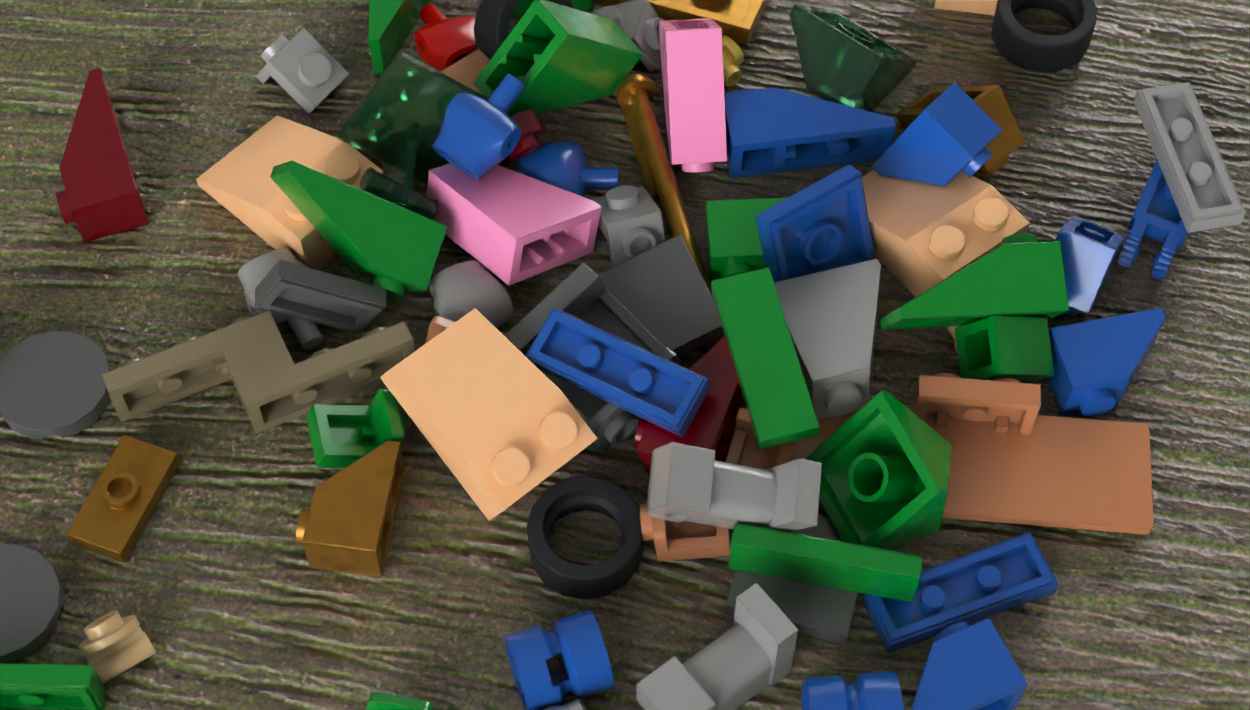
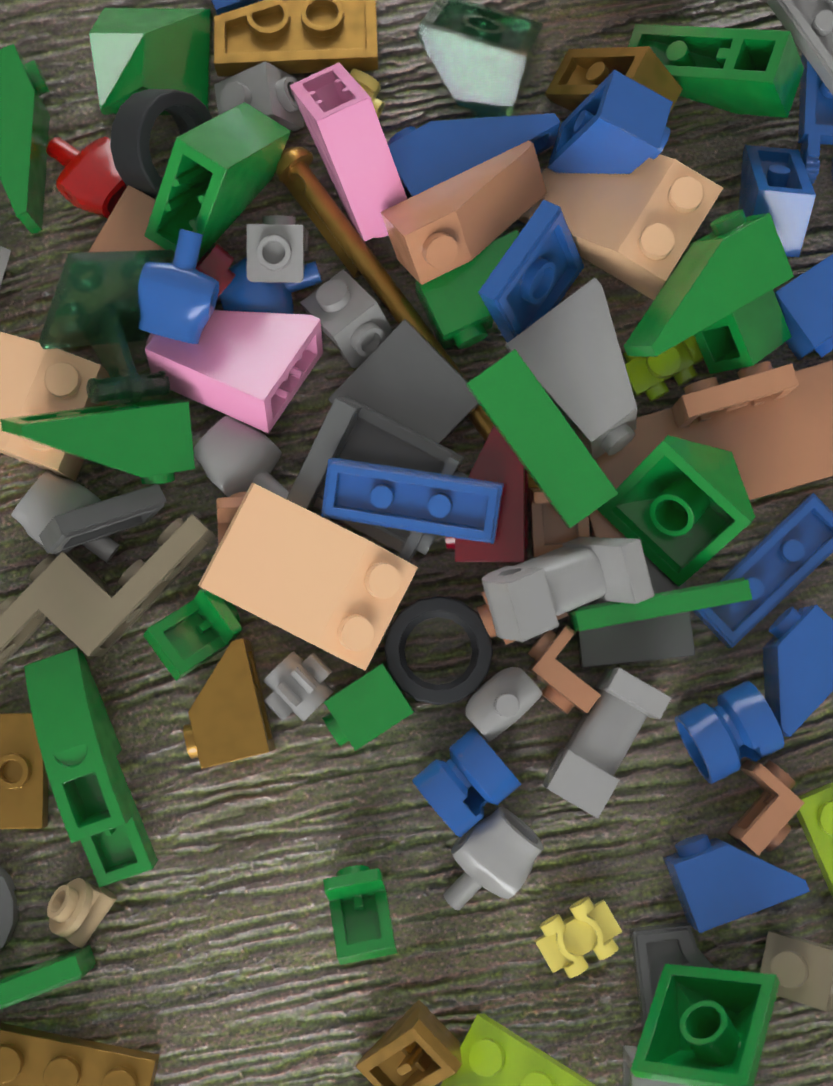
camera: 20 degrees left, 25 degrees up
(189, 513) = (84, 769): none -> green slope
(432, 513) = (298, 686): none -> light grey gear
(491, 560) = (366, 708): none -> green brick
(588, 142) = (276, 250): none -> light grey bracket
(629, 601) = (501, 701): none -> light grey piece
(696, 608) = (562, 686): none -> nougat bracket
(771, 164) = (464, 213): none -> nougat slope
(902, 364) = (649, 373): none -> lime piece
(1081, 142) = (728, 66): none -> green slope

